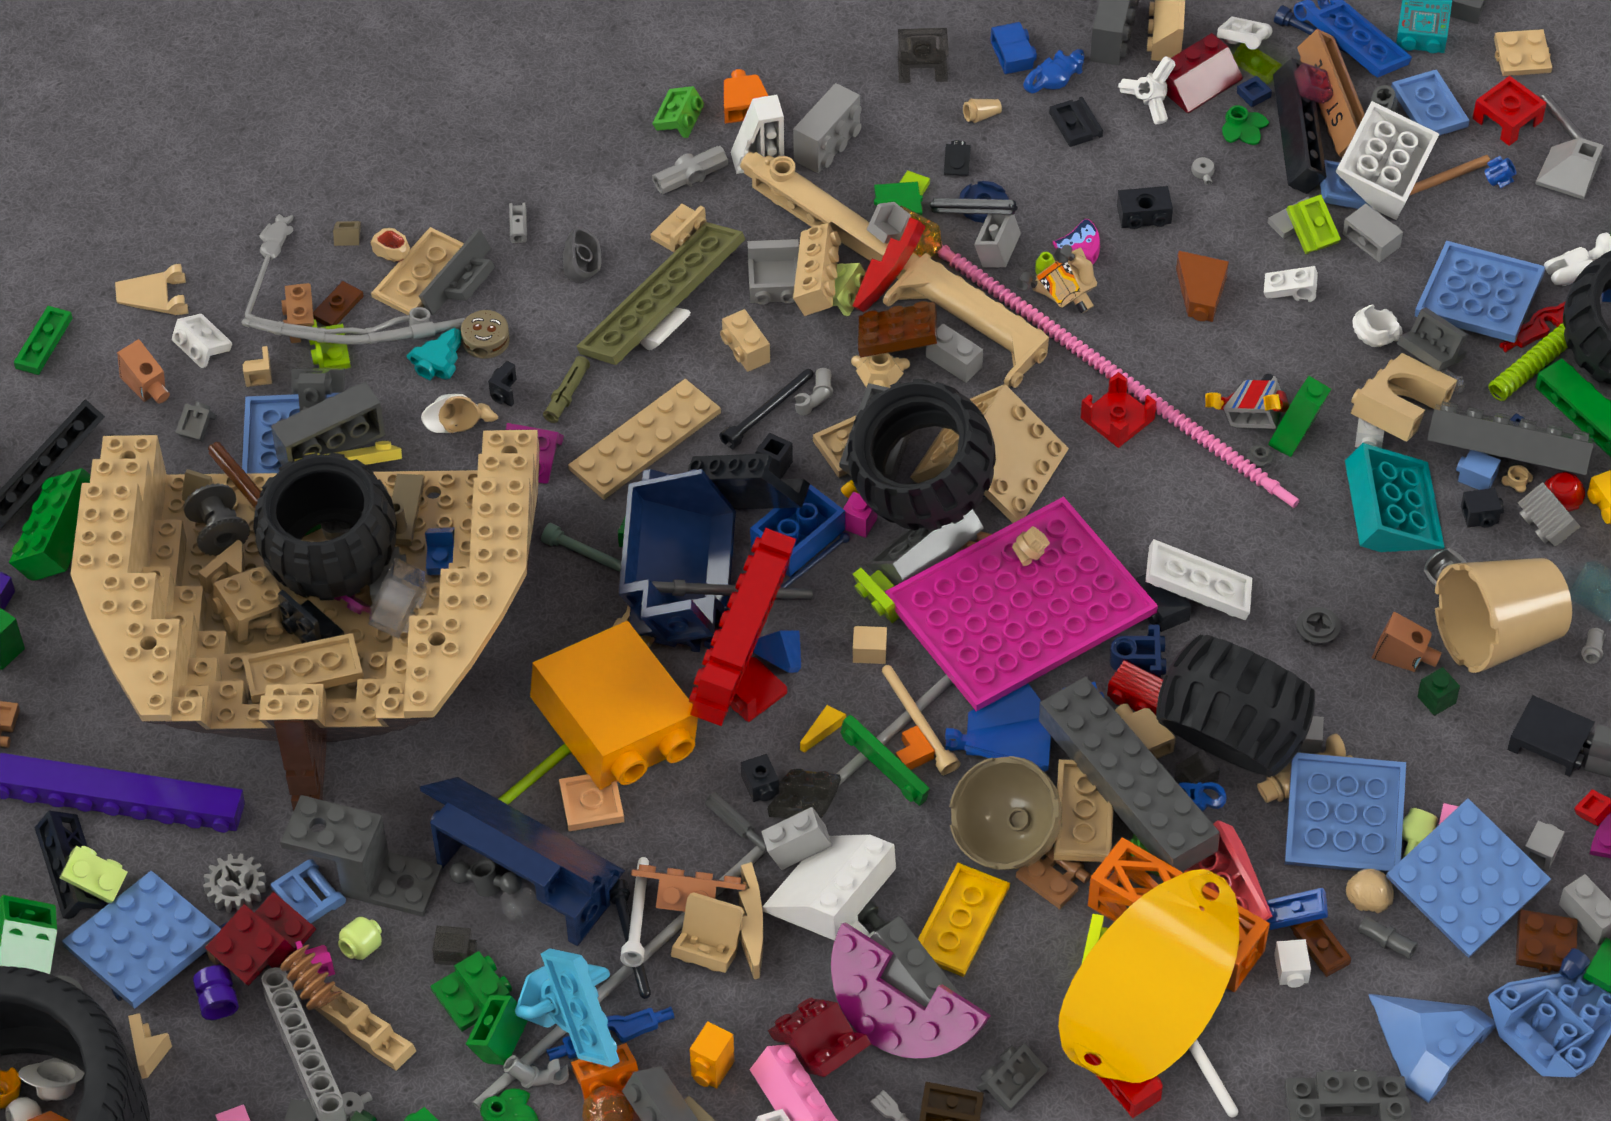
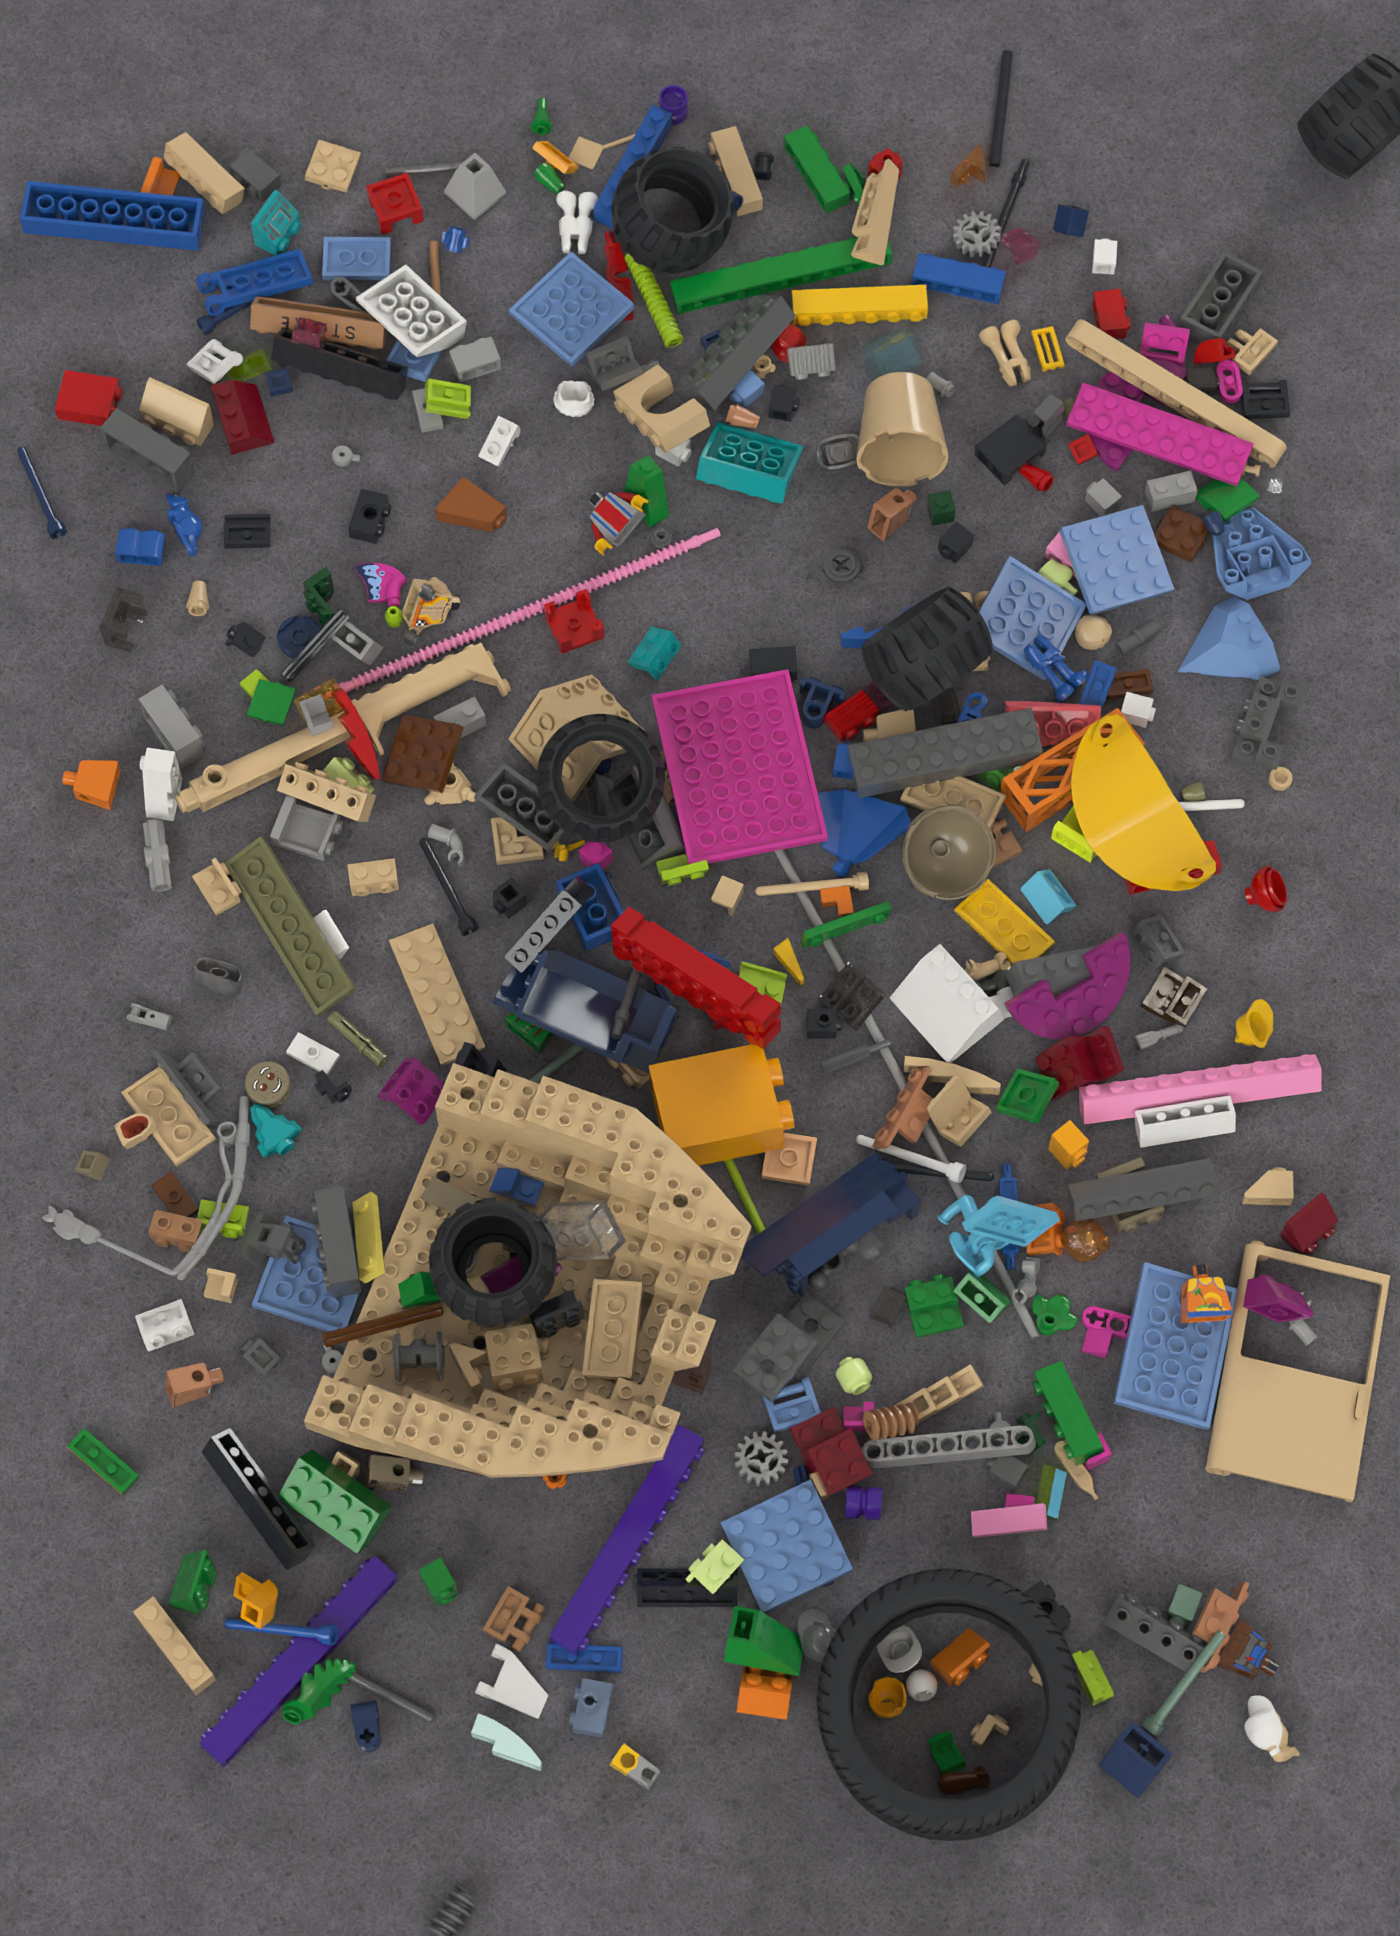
camera: 70 degrees left, 15 degrees up
(148, 1048) = (878, 1573): tan slope -> none
(151, 292) = (86, 1354): tan flag -> none
(193, 481) = (368, 1366): dark tan slope -> none
(455, 410) = (350, 1129): tan hair -> none
(535, 360) = (312, 1053): none -> white plate
(575, 491) = (473, 1059): none -> black brick
(679, 110) = (82, 841): bright green bracket -> none
(757, 999) = (1027, 1096): none -> green plate
(780, 708) = (765, 979): none -> lime plate
(796, 838) = (896, 1015): light grey brick -> none
(893, 909) = (981, 970): none -> tan piece
(1018, 949) = (1047, 896): none -> medium azure panel
(1030, 545) = (697, 736): tan piece -> none
(1034, 188) = (317, 592): none -> dark green bracket
(1122, 494) = (655, 652): none -> teal bracket
(1151, 89) = (253, 461): white bush -> none
(1199, 579) = (773, 630): white plate -> none
(1218, 1055) = (1193, 792): none -> olive hose
(1244, 127) = (314, 406): green plate -> none
(1296, 843) = (1049, 655): none -> blue piece
(1402, 717) = (955, 542): none -> black brick
(1443, 477) = (742, 417): none -> nougat cone
(1532, 777) = (1037, 477): none -> red cone

